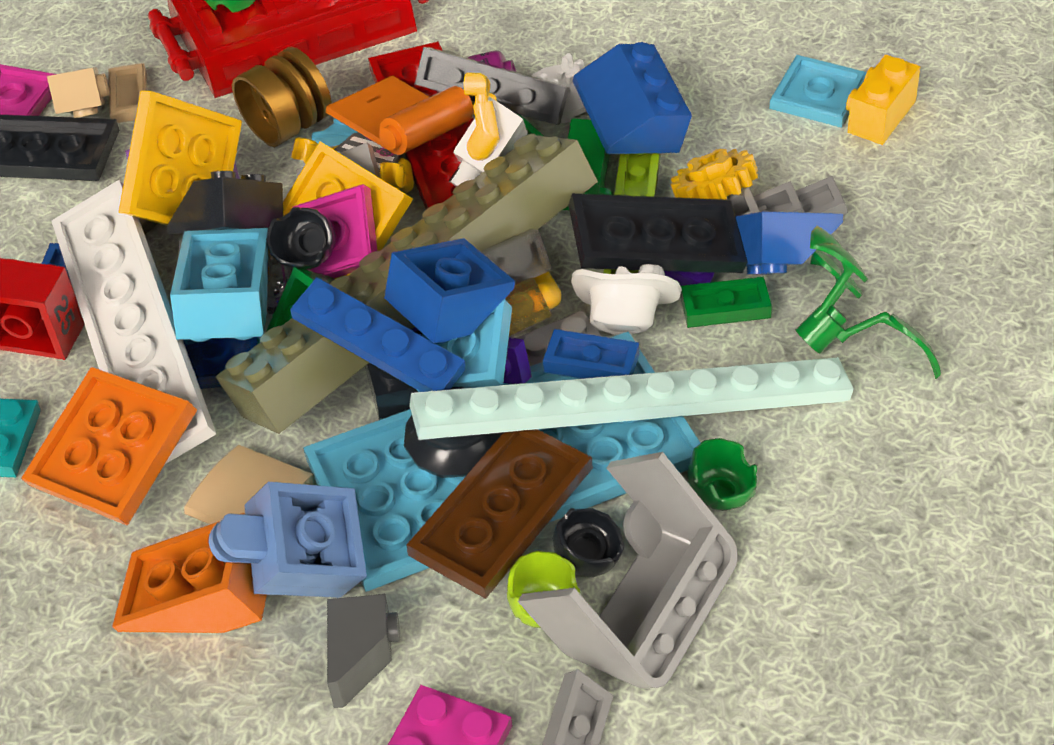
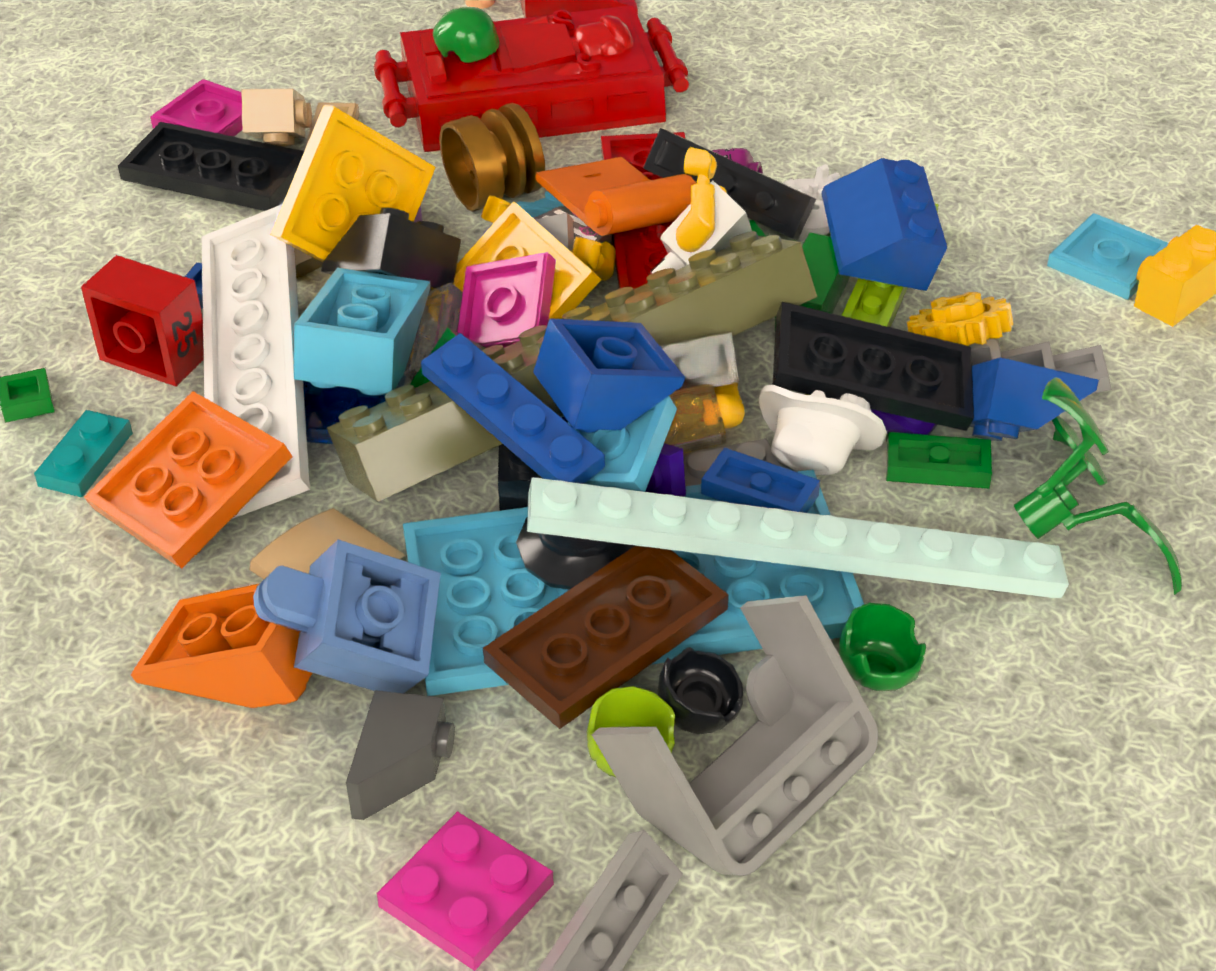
camera: 10 degrees right, 5 degrees down
(301, 238) = (463, 298): black hair -> none

